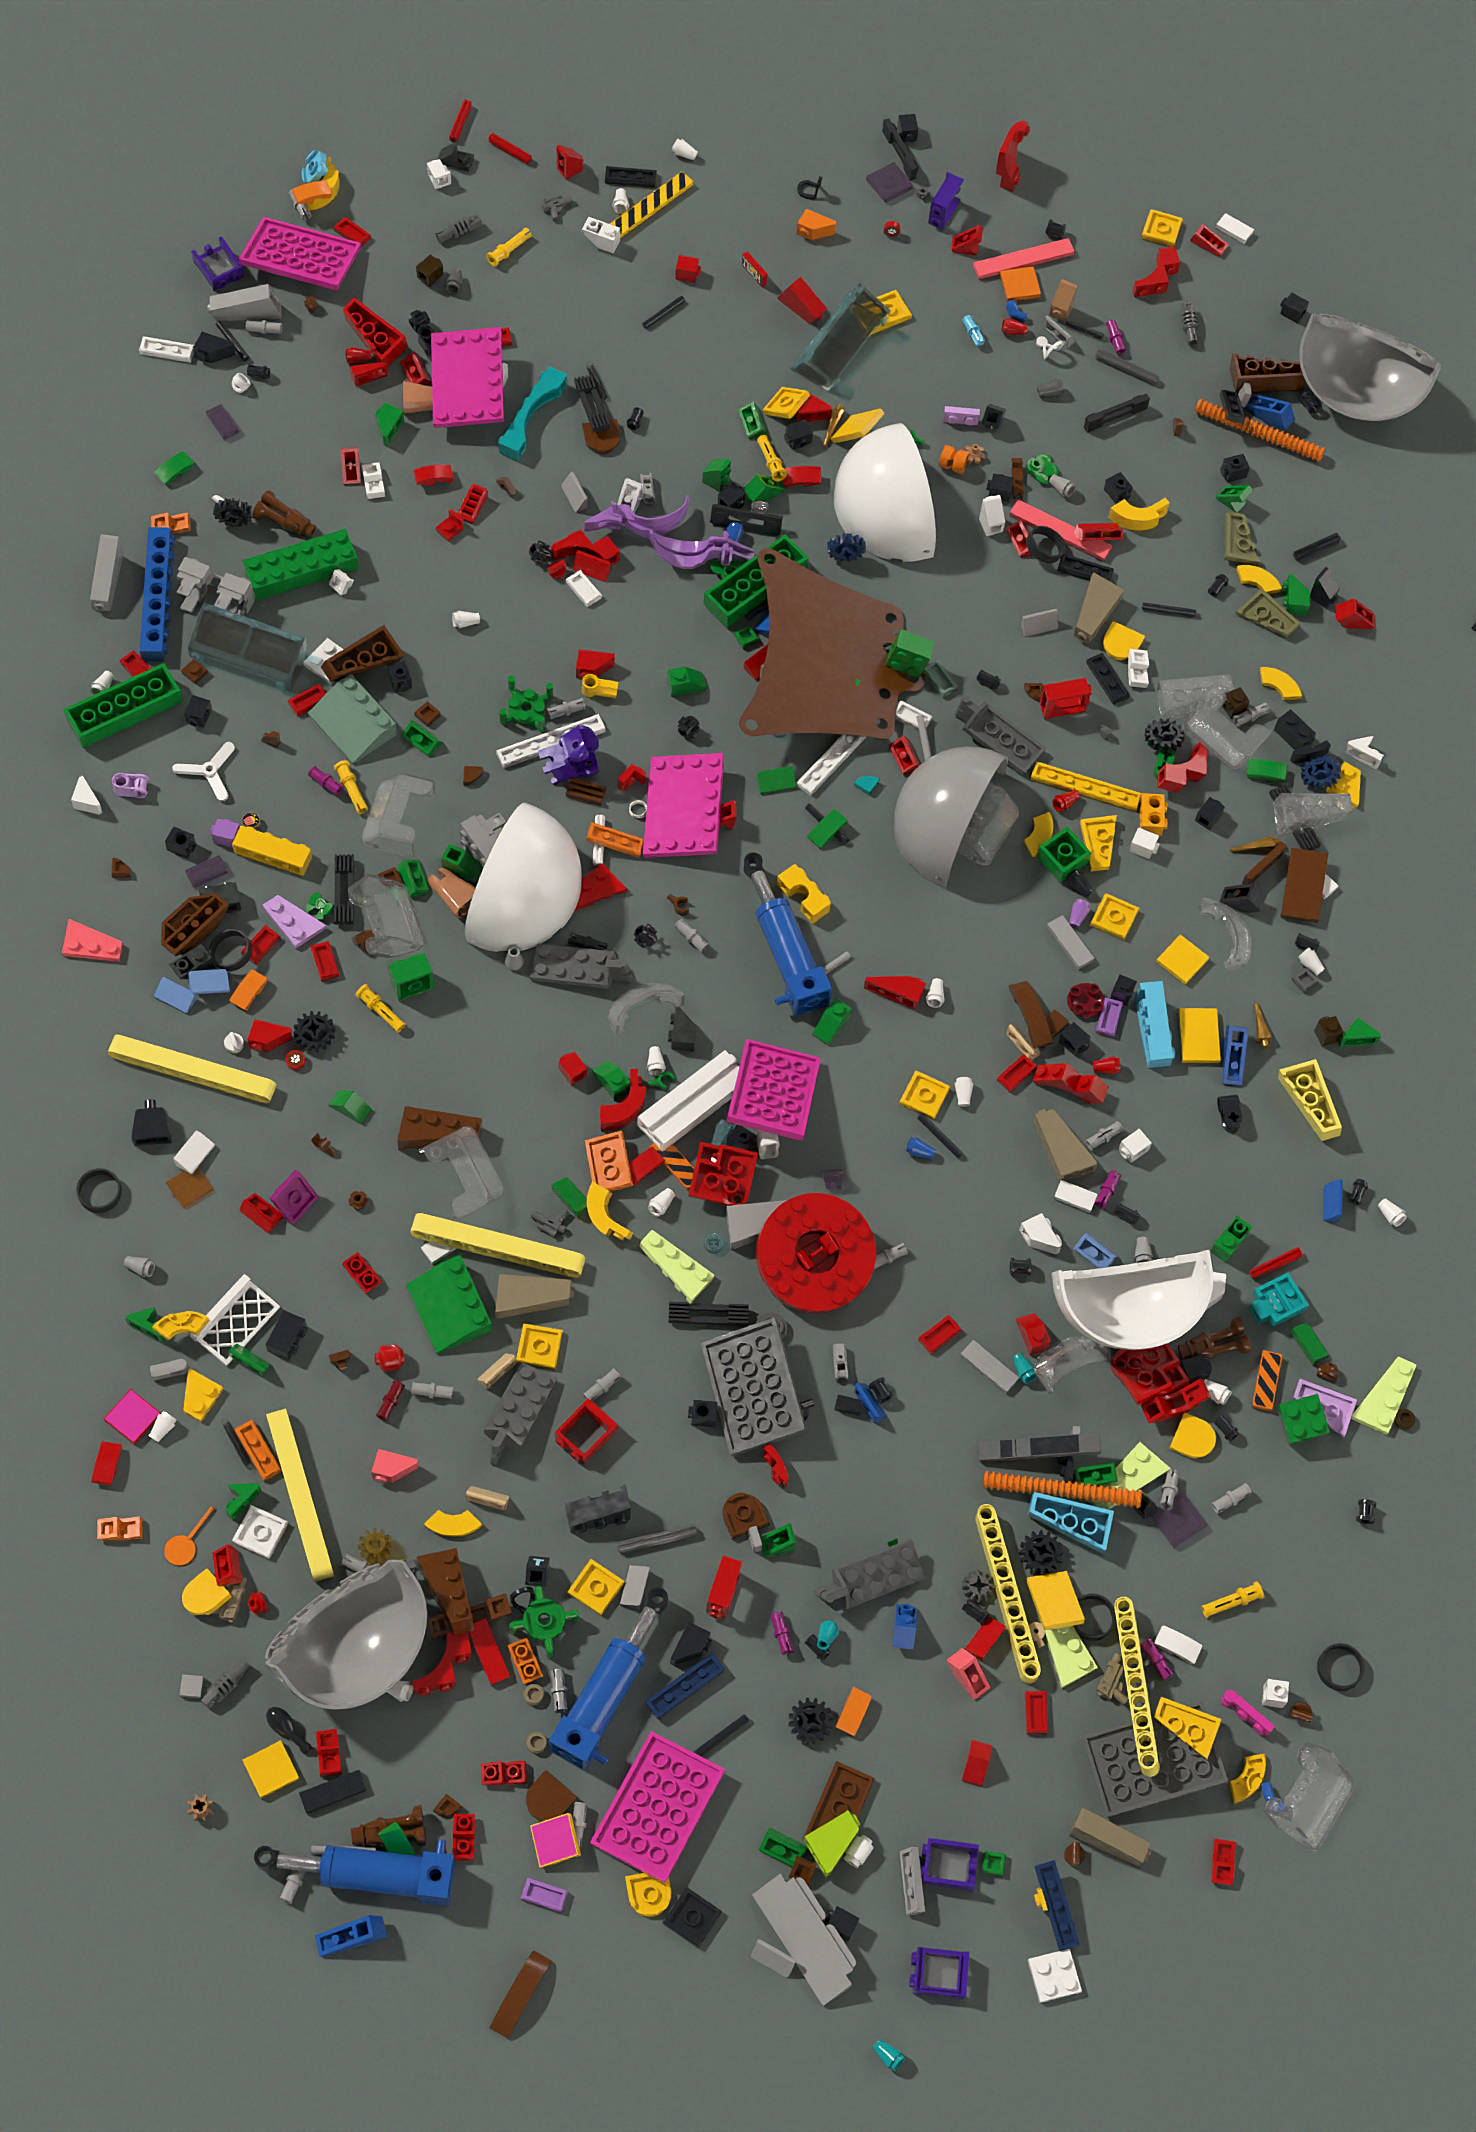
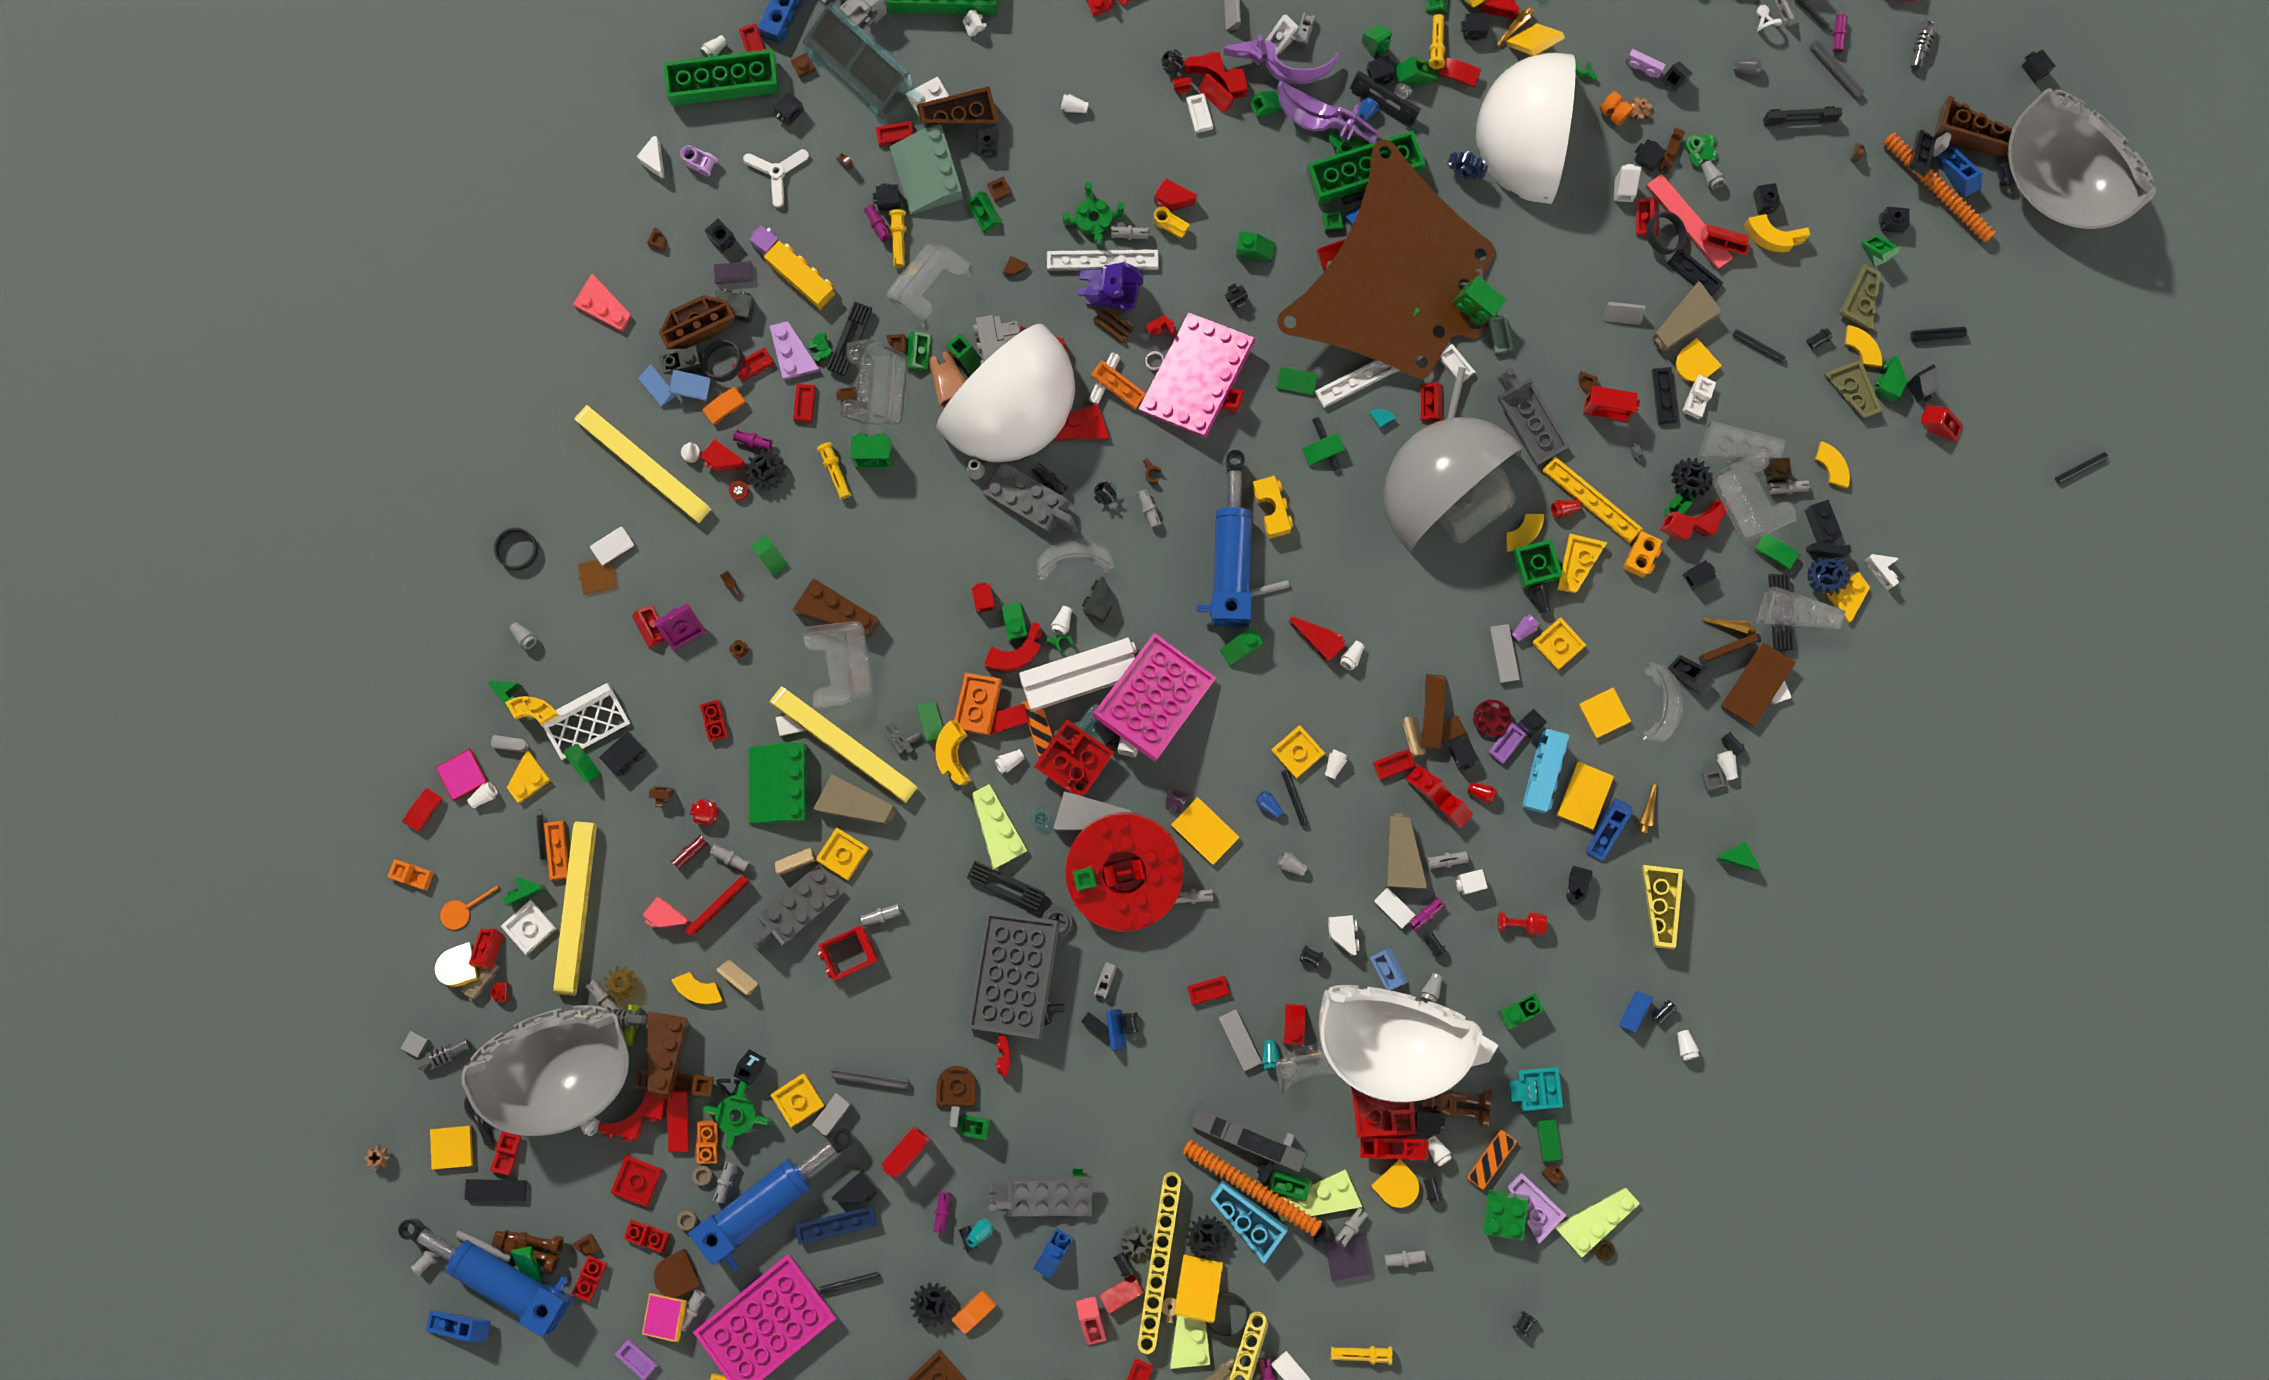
camera: 30 degrees right, 15 degrees up
(150, 1125) = (584, 504): black torso -> none
(251, 820) = (793, 237): tile -> none
(290, 1010) = (752, 440): none -> magenta pin
(326, 755) = (887, 197): none -> black brick
(440, 1438) = (717, 905): none -> red tile
(471, 1726) = (636, 1181): none -> red tile
(599, 1511) = (827, 1033): black wedge -> none
(640, 559) = (1265, 103): none -> green brick
(706, 1421) = (968, 979): black brick -> none
(783, 1268) = (1084, 878): none -> green tile
(873, 1195) = (1205, 831): none -> yellow tile
(962, 1192) = (1291, 864): none -> light grey cone
(992, 681) = (1548, 355): black pin -> none
(1144, 843) = (1621, 581): white brick -> none
(1207, 1160) = (1534, 923): none -> red piece
(1276, 1263) = (1553, 1050): red axle -> none
(1328, 1030) = (1711, 841): dark brown brick -> none

